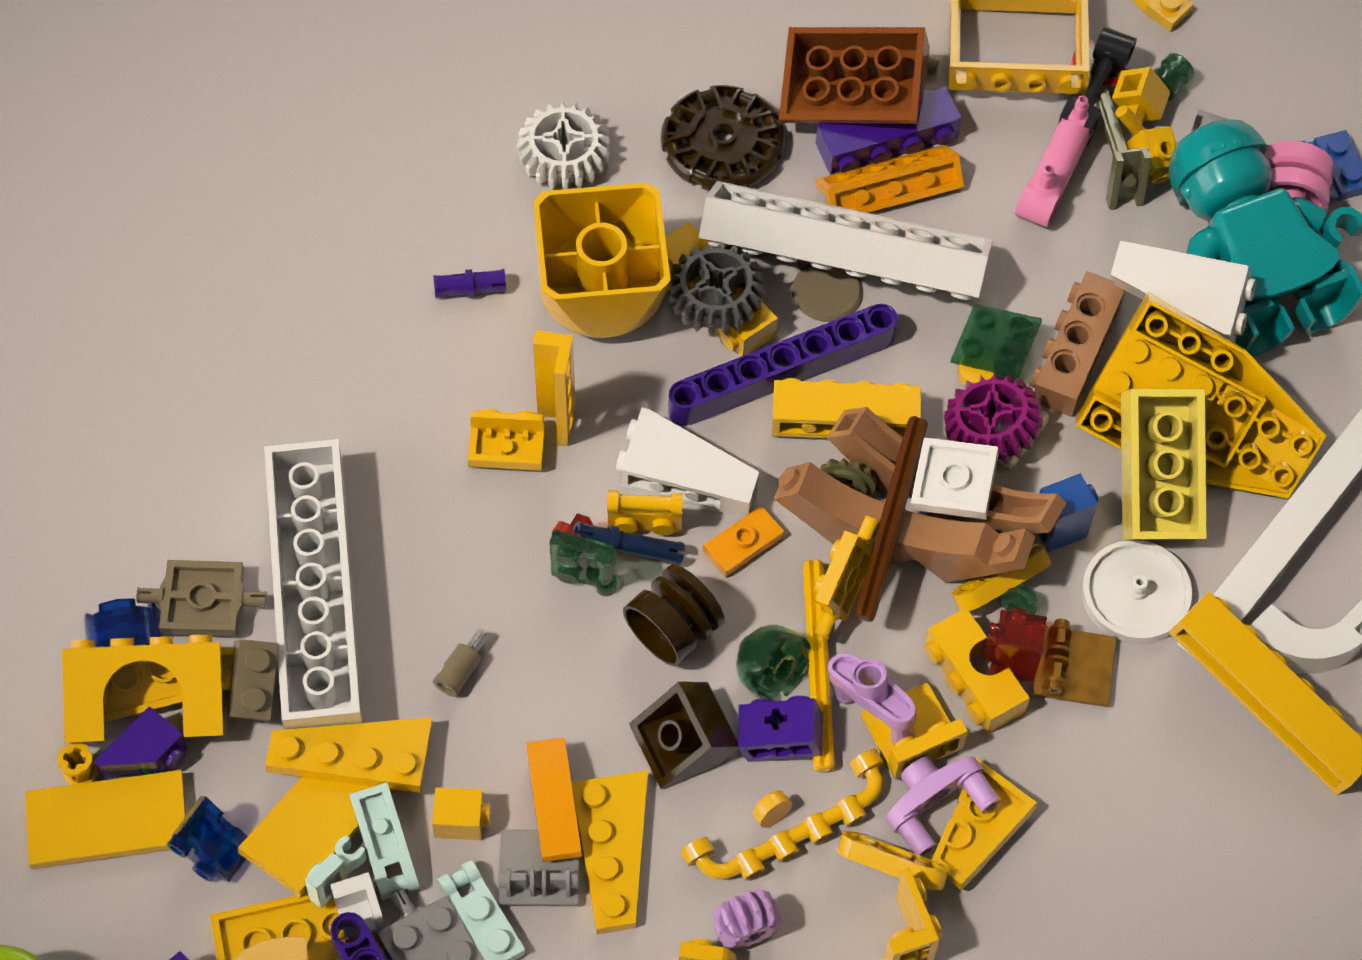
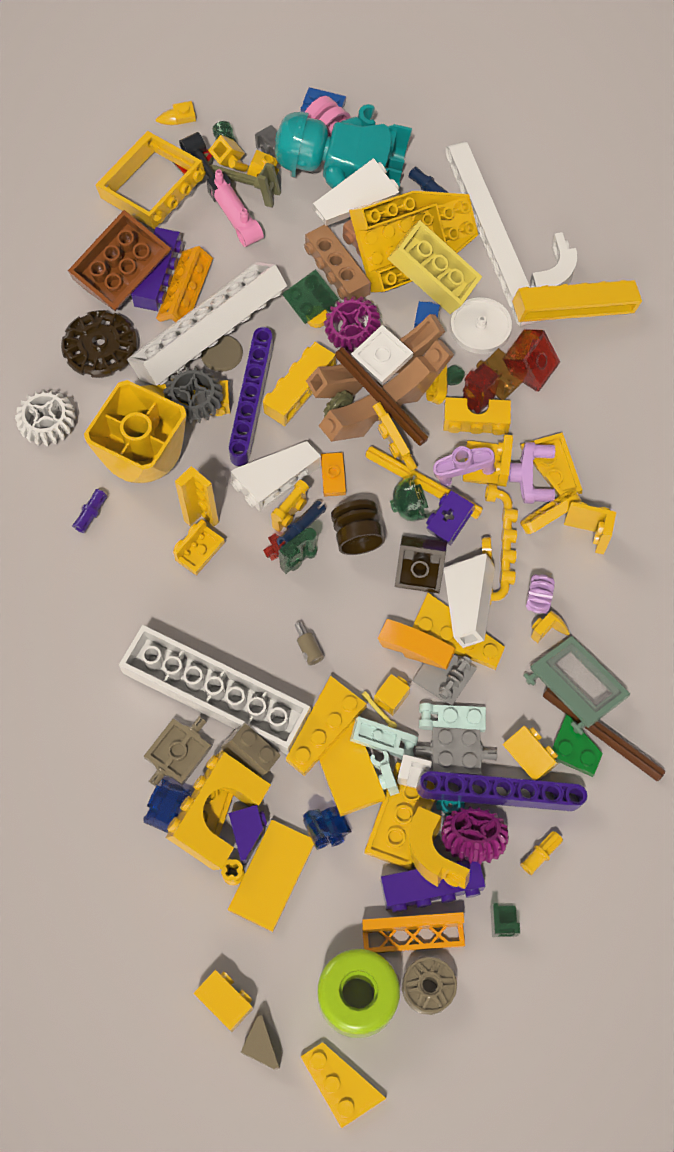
camera: 55 degrees left, 5 degrees up
(417, 843) = (366, 696): none -> light yellow hinge
(666, 824) = (469, 597): none -> white slope
(1127, 690) = (532, 358): none -> clear red slope
(1315, 381) = (425, 182): none -> dark blue pin

